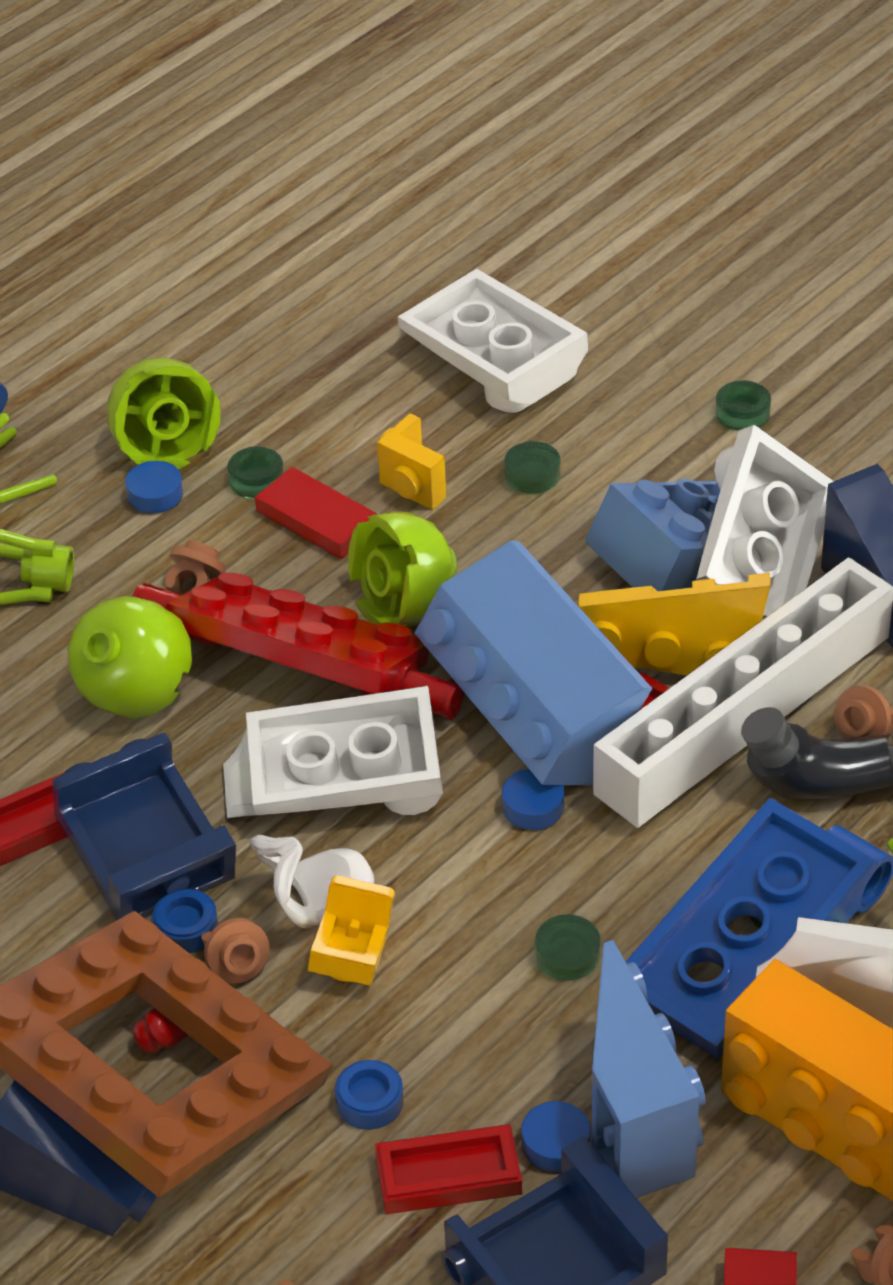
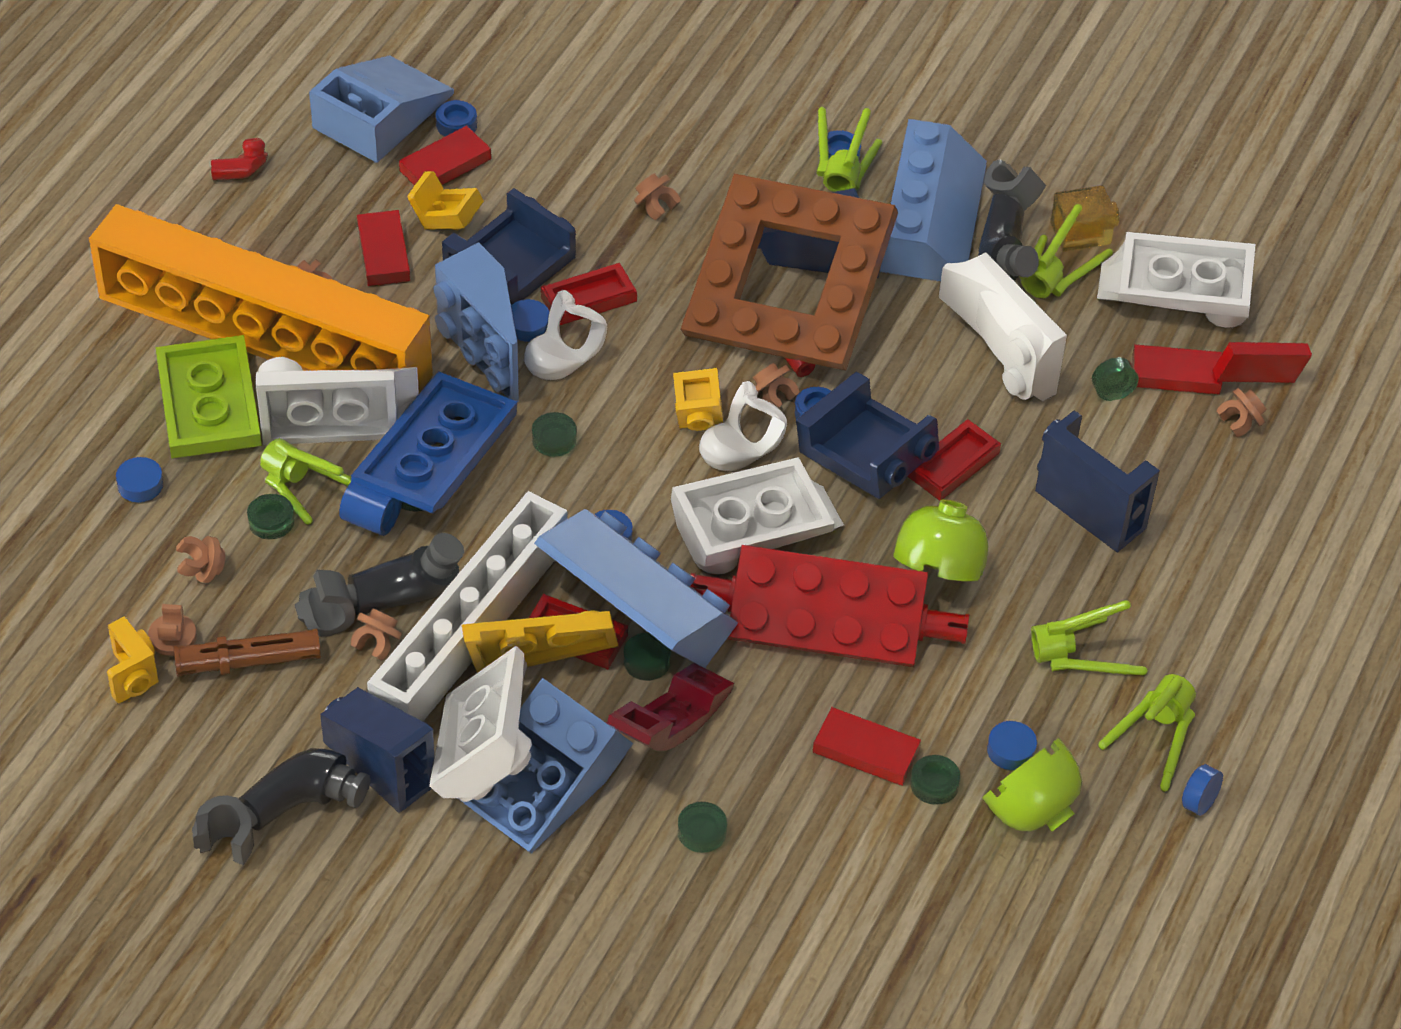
camera: 160 degrees right, 5 degrees up
(193, 561) = (936, 664): nougat plate -> none
(369, 1094) = (652, 326): blue tile -> none
(399, 566) = (764, 669): lime cylinder -> none
(409, 466) = (803, 787): yellow bracket -> none
(498, 339) = (787, 940): white slope -> none
(532, 1065) = (548, 354): none -> white piece
(570, 498) = (677, 714): none -> dark red slope
(743, 405) = (535, 935): clear green tile -> none

